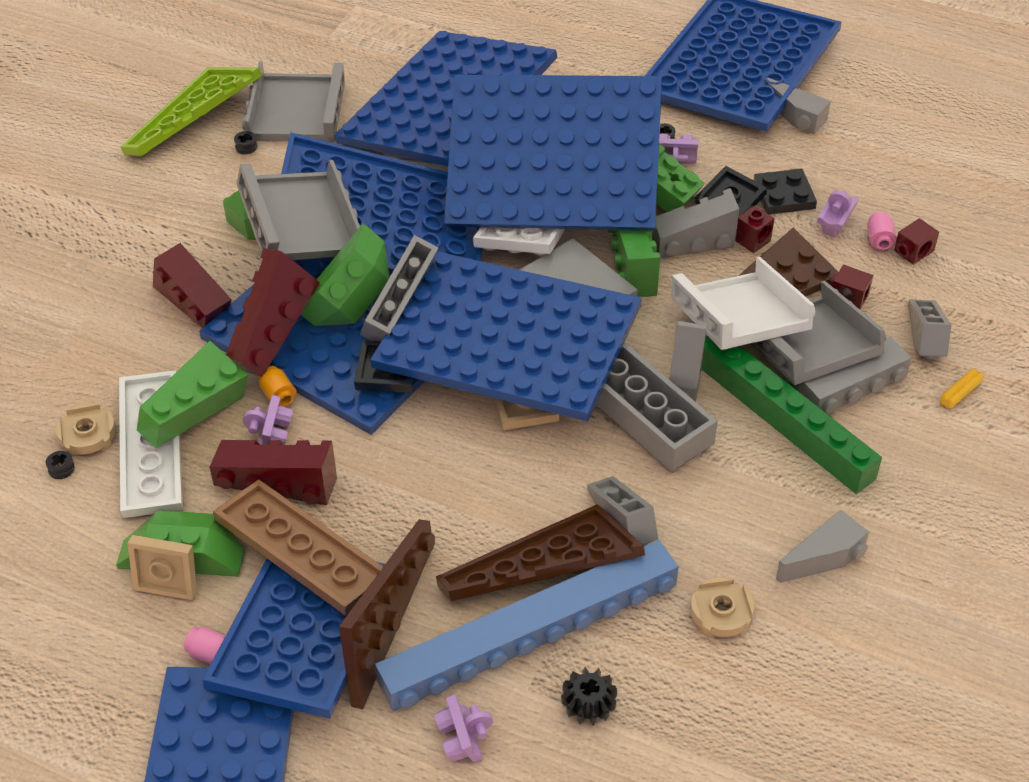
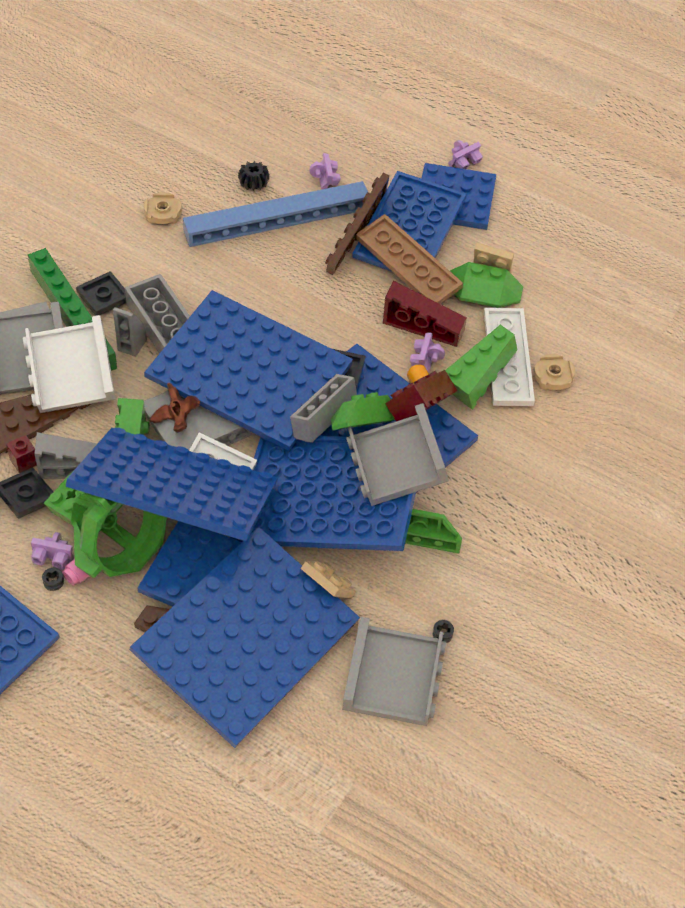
camera: 175 degrees left, 5 degrees up
(63, 471) = (569, 348): black bush -> none
(189, 285) = (489, 464): dark red wedge -> none
(195, 100) = (487, 683): lime wing -> none
(203, 643) = (464, 230): bright pink brick -> none
(373, 138) = (325, 576): none -> tan plate
(565, 547) = (251, 244): reddish brown wing -> none
(585, 275) = (176, 410): none -> copper animal
(626, 508) = (203, 264): light grey slope -> none
(751, 445) = (102, 293): none -> black plate
(825, 549) = (87, 225): light grey slope -> none

